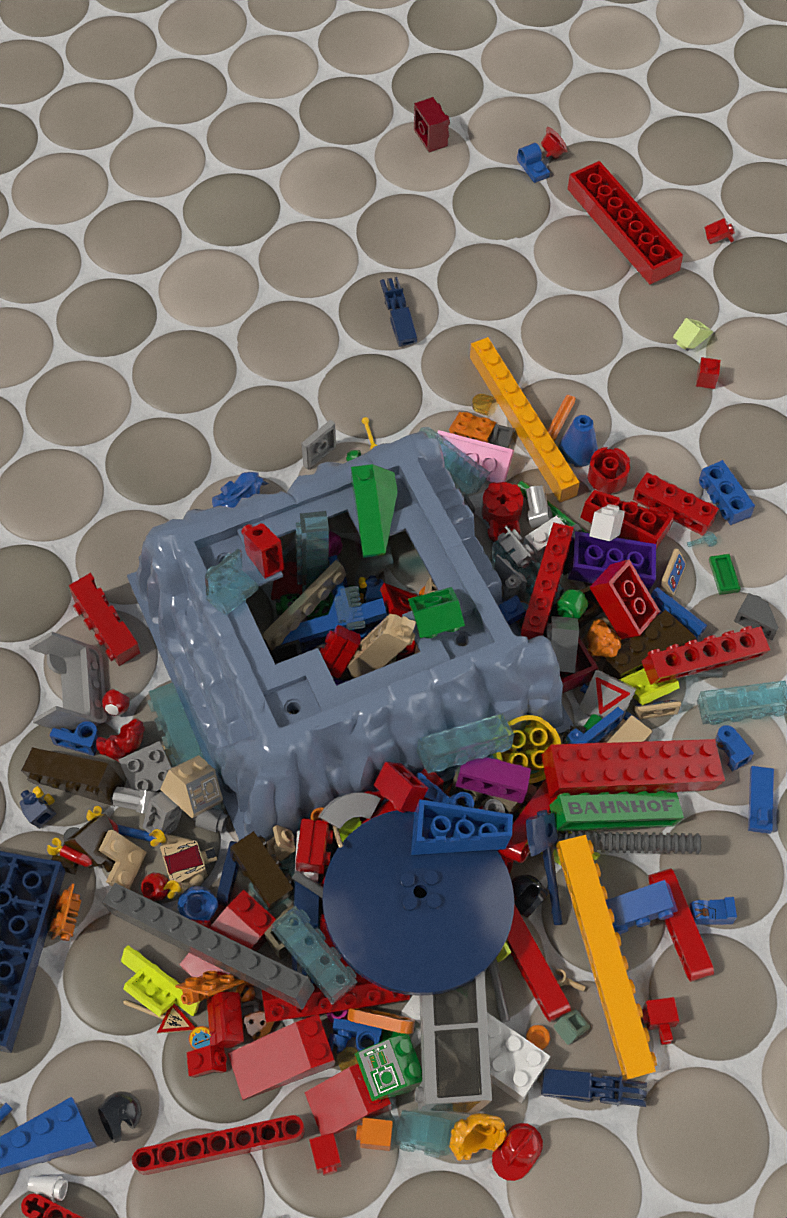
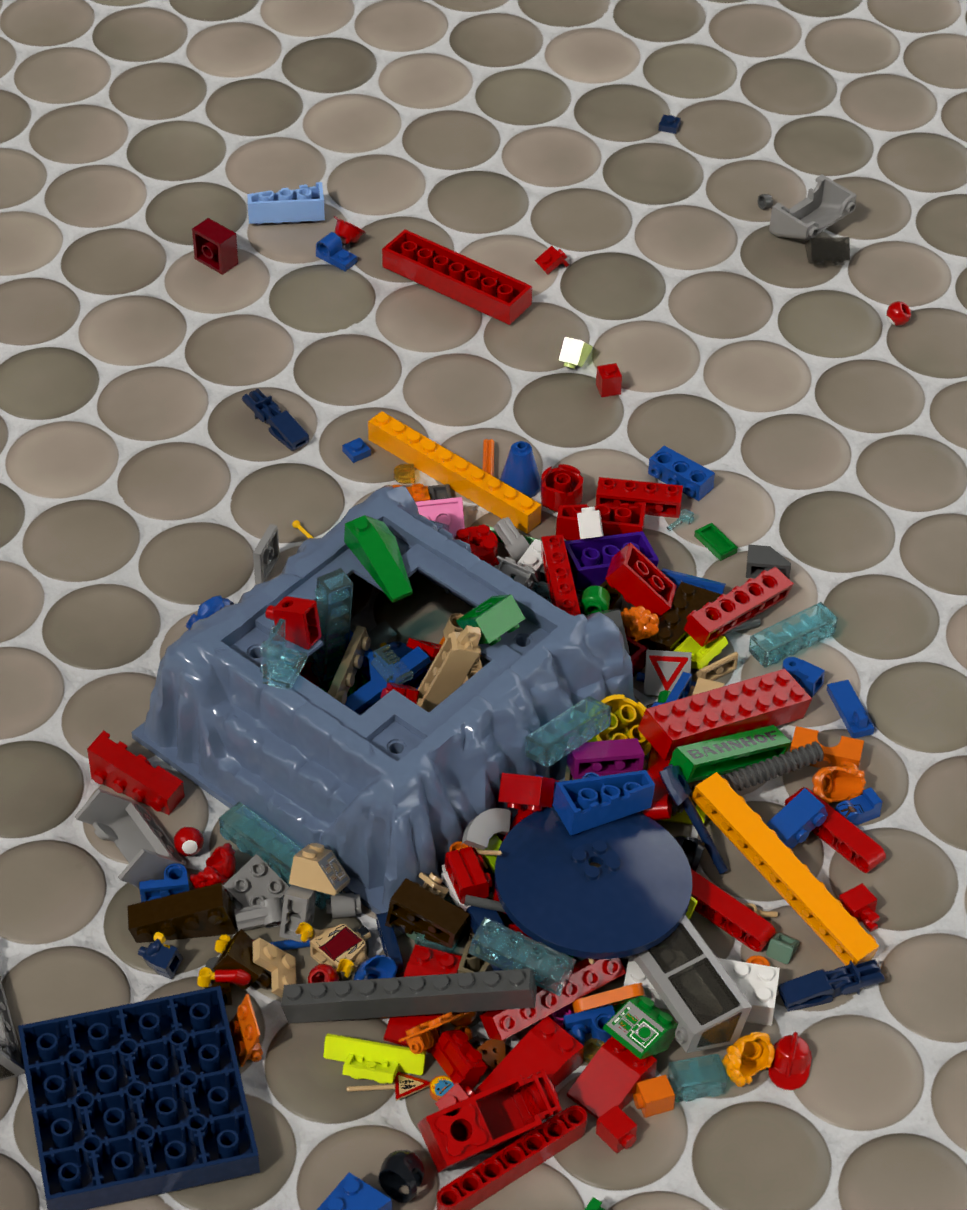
camera: 25 degrees left, 15 degrees down
(211, 1100) = (488, 1119): none -> red piece
(453, 365) = (356, 450): none -> blue plate
(513, 103) = (287, 205): none -> light blue wedge
(673, 573) = (668, 552): slope -> none
(706, 879) = (838, 783): none -> orange hair
(726, 851) = (846, 752): none -> orange arch

